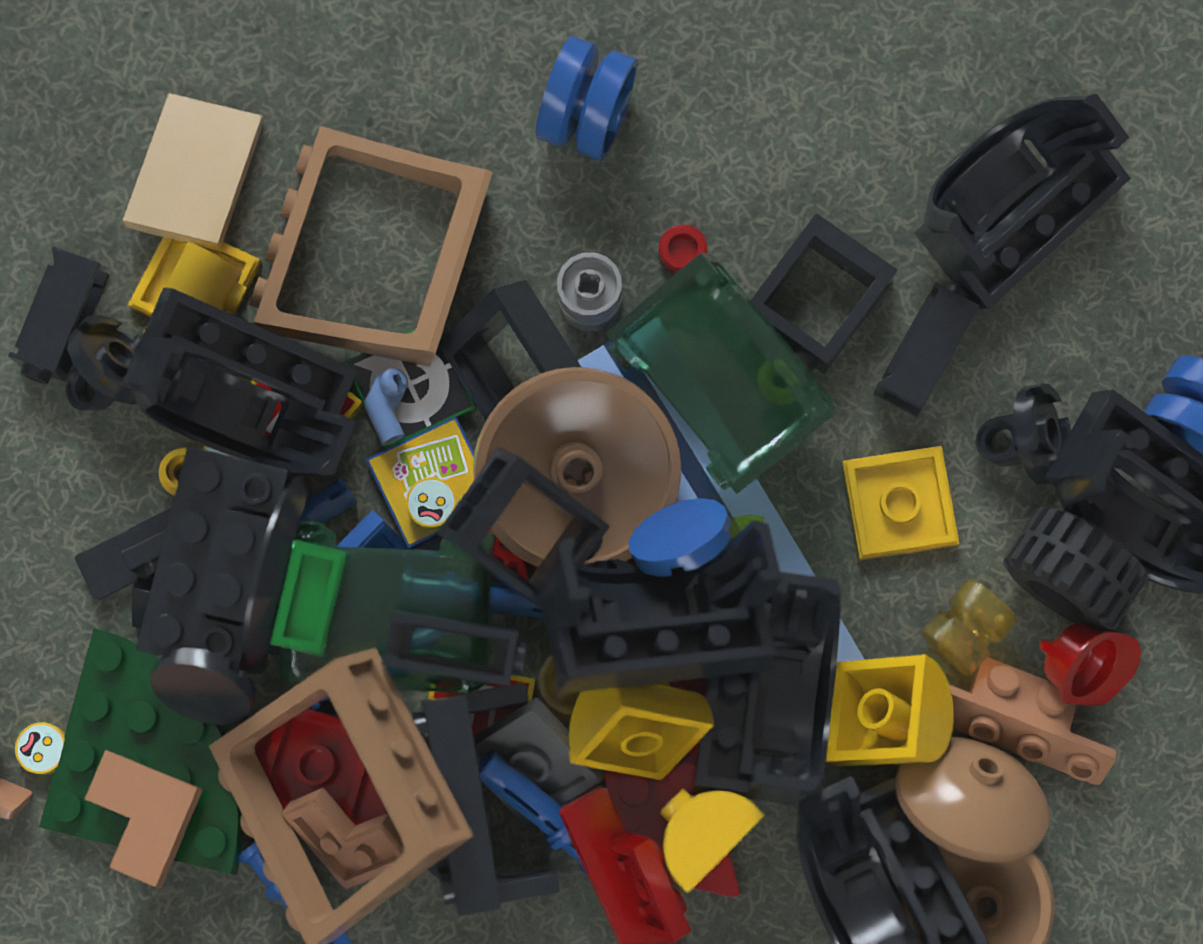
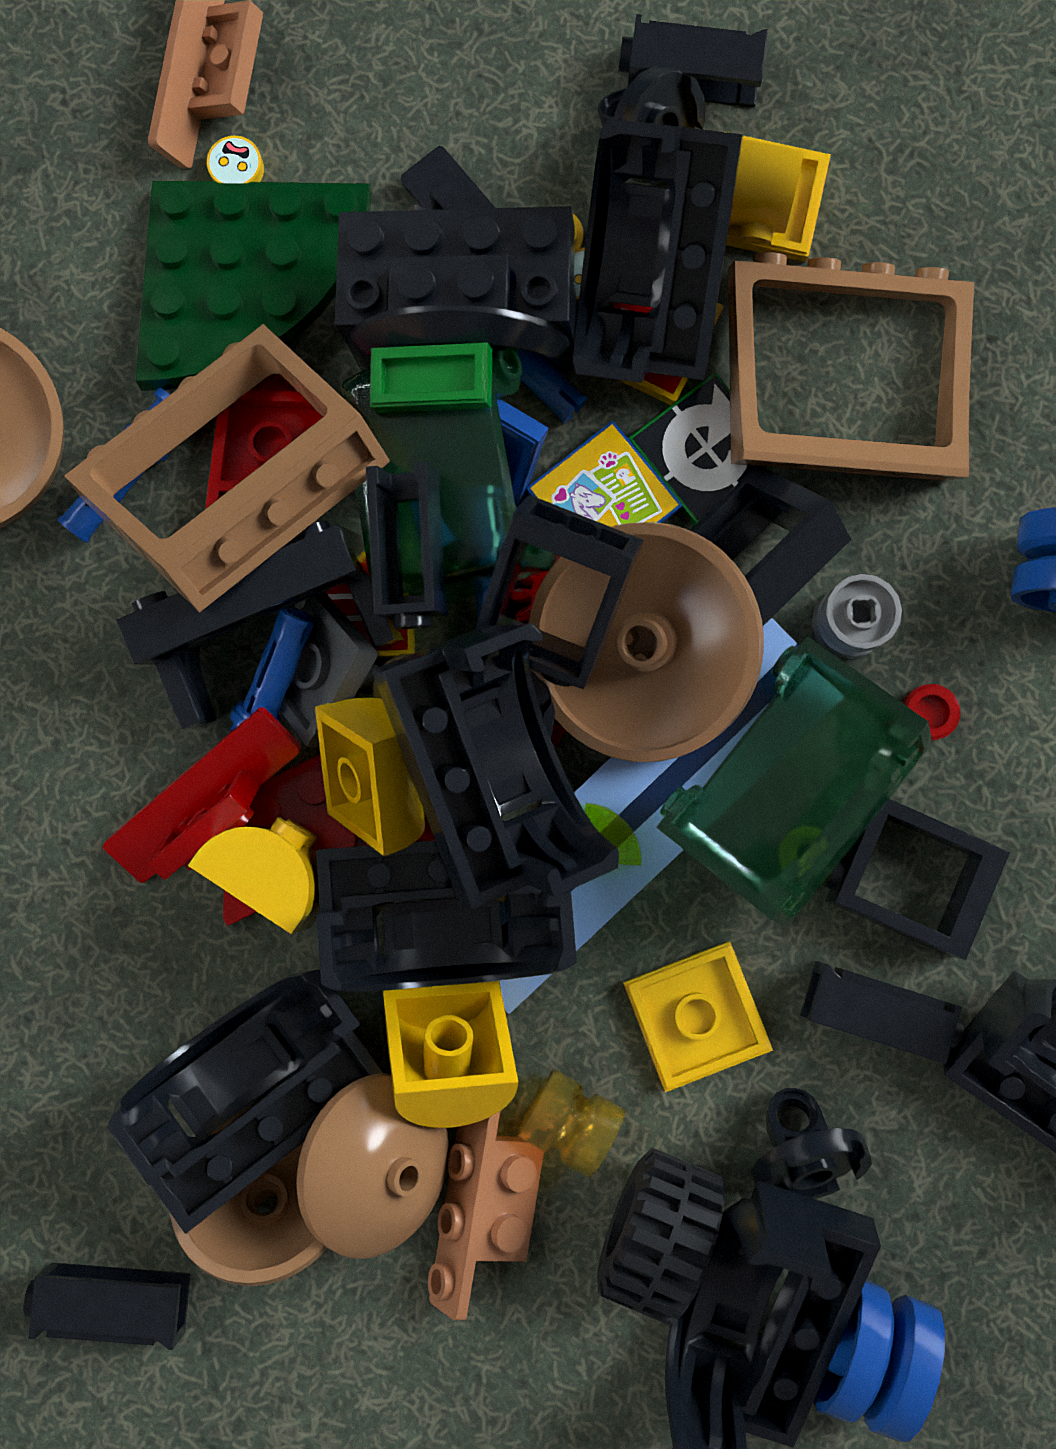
camera: 75 degrees right, 5 degrees up
(157, 813) = (180, 289): nougat tile -> none
(193, 171) = (889, 162): tan tile -> none
(202, 686) = (315, 291): black tile -> none
(347, 850) = (194, 477): nougat tile -> none
(382, 403) = (676, 421): medium blue arm -> none
(430, 502) = (581, 494): tile -> none
(680, 535) = (591, 773): blue tile -> none
(1090, 663) = (558, 1268): red piece -> none

